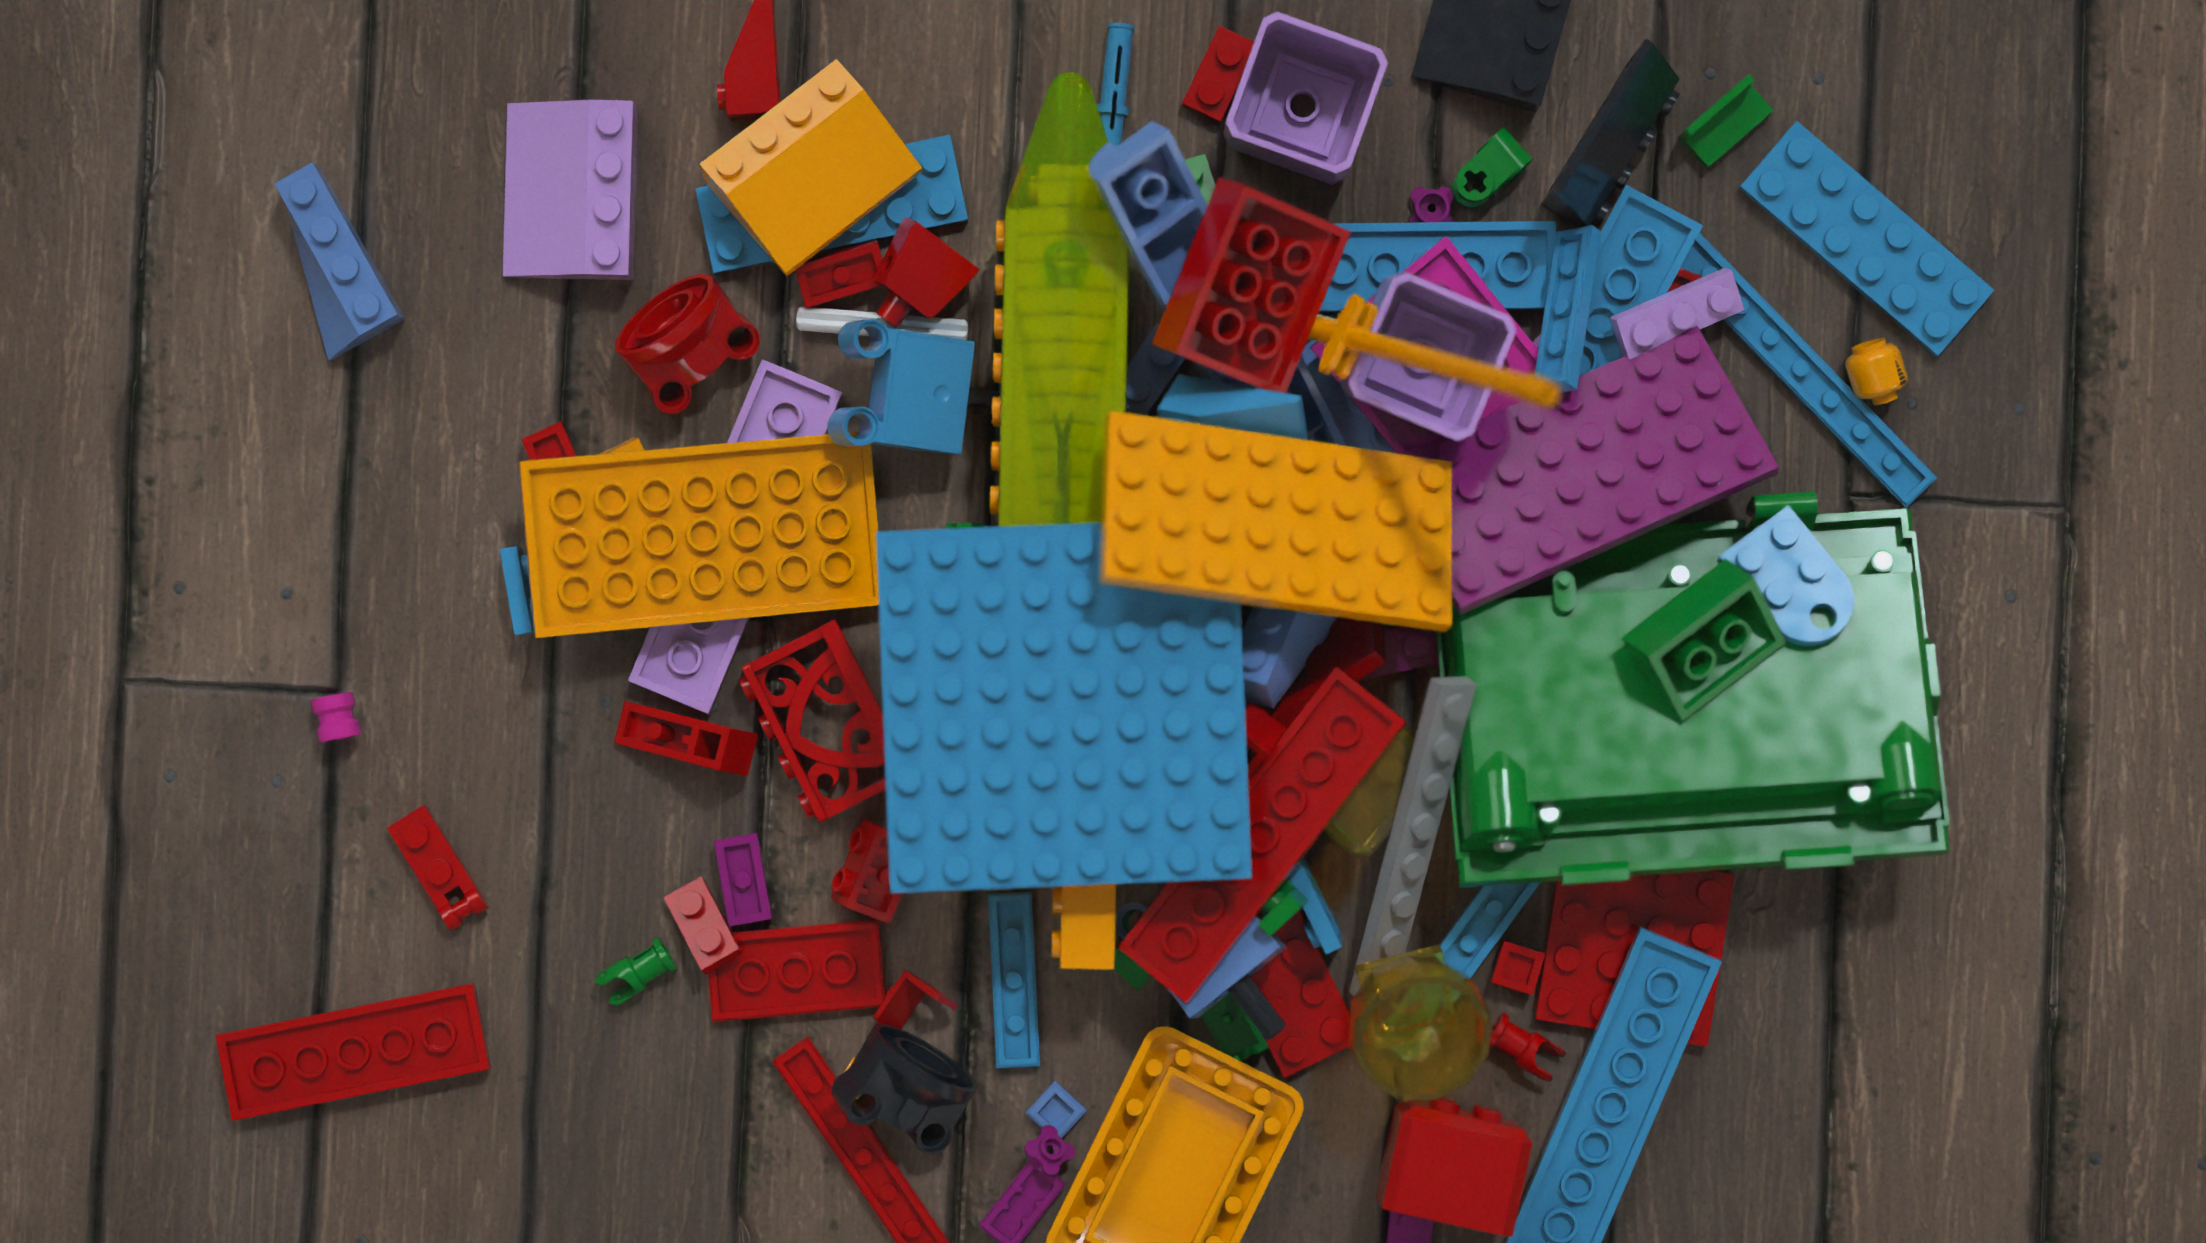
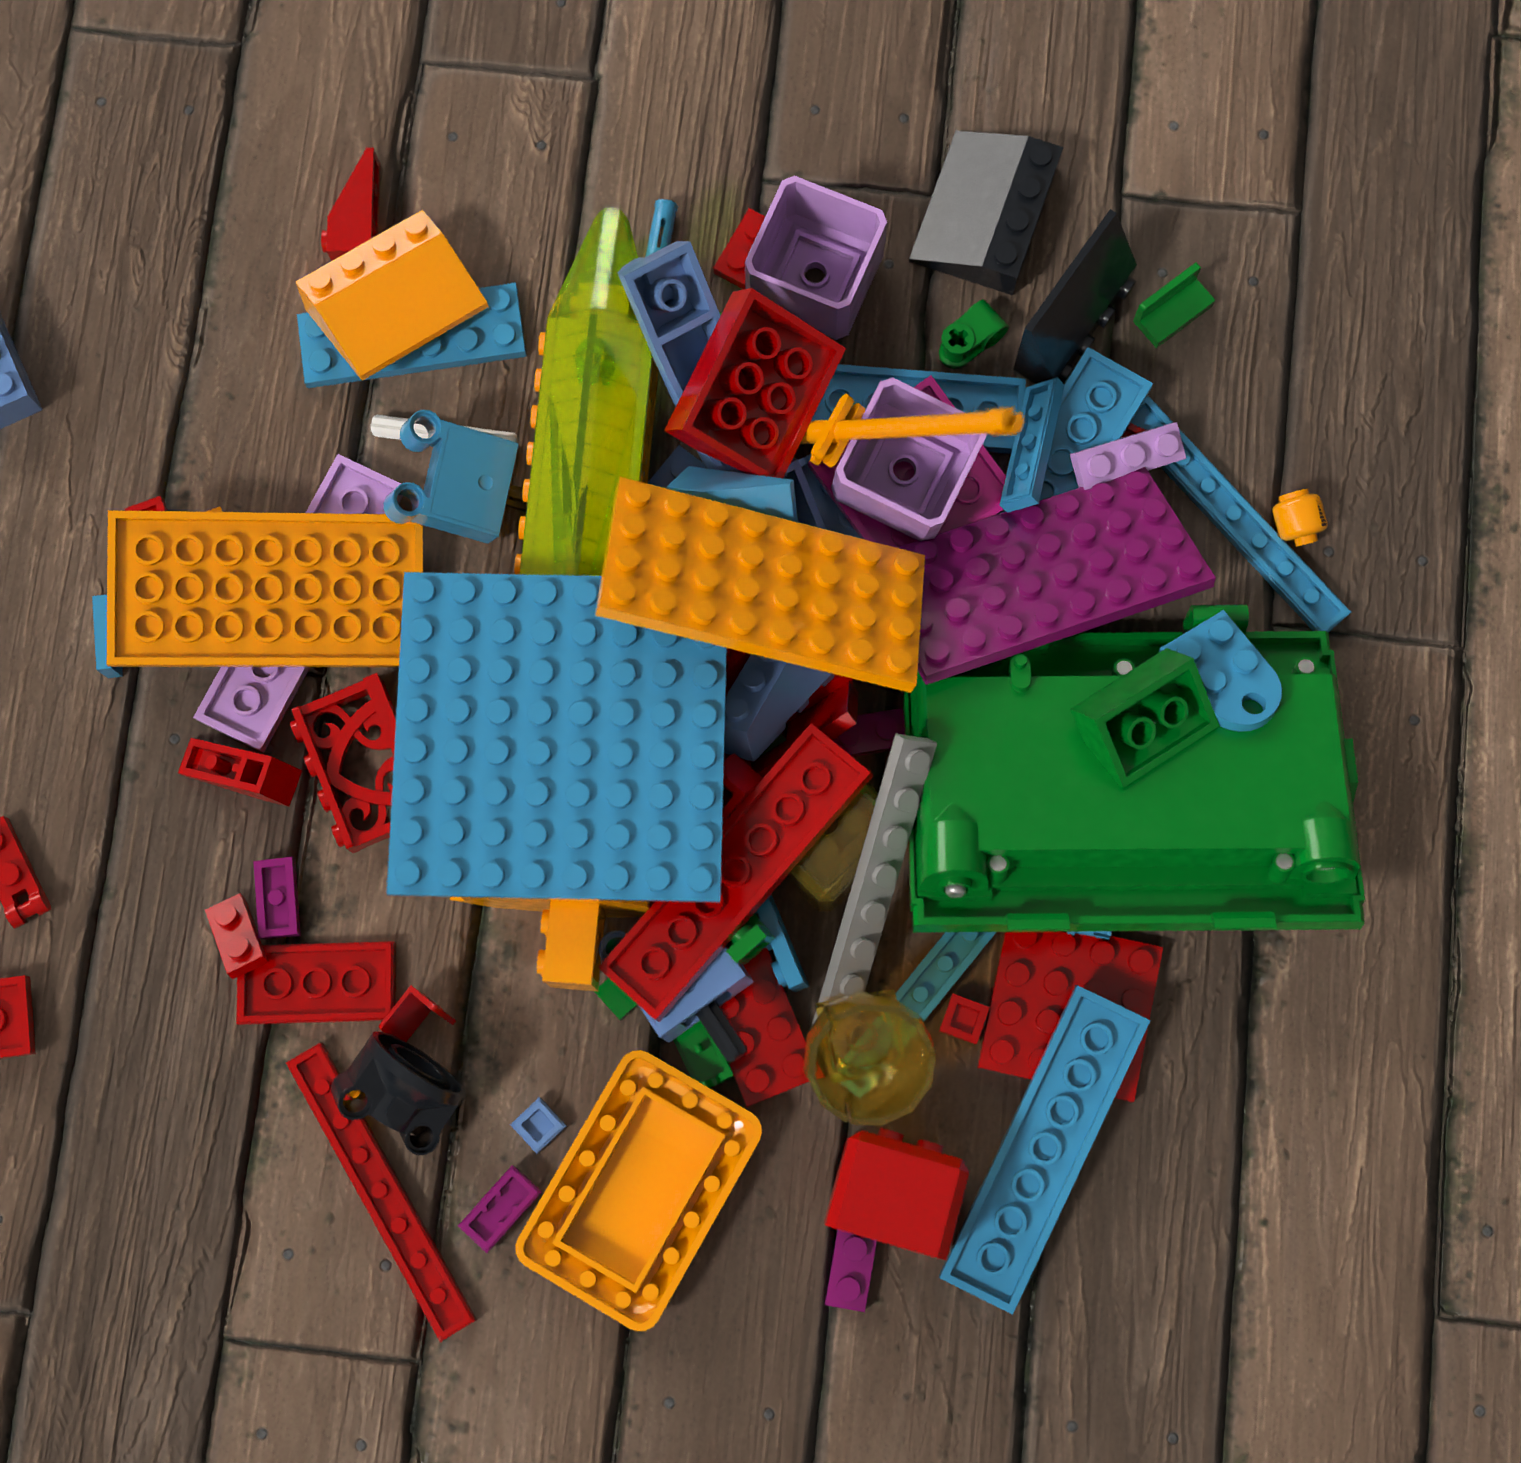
camera: 10 degrees right, 10 degrees down
(570, 189) = (194, 310): lavender slope -> none
(637, 971) = (176, 972): green piece -> none
(683, 339) = (271, 431): red piece -> none
(839, 273) = (412, 388): red plate -> none
(865, 876) = (387, 914): red bracket -> none
(920, 274) = (479, 387): red torso -> none
(1014, 979) = (510, 1004): dark azure tile -> none
(1041, 1159) = (519, 1166): magenta plate -> none
(1440, 198) = (925, 355): magenta plate -> none
(1522, 1045) = (965, 1091): red piece -> none
(1866, 239) = (1292, 411): dark azure plate -> none

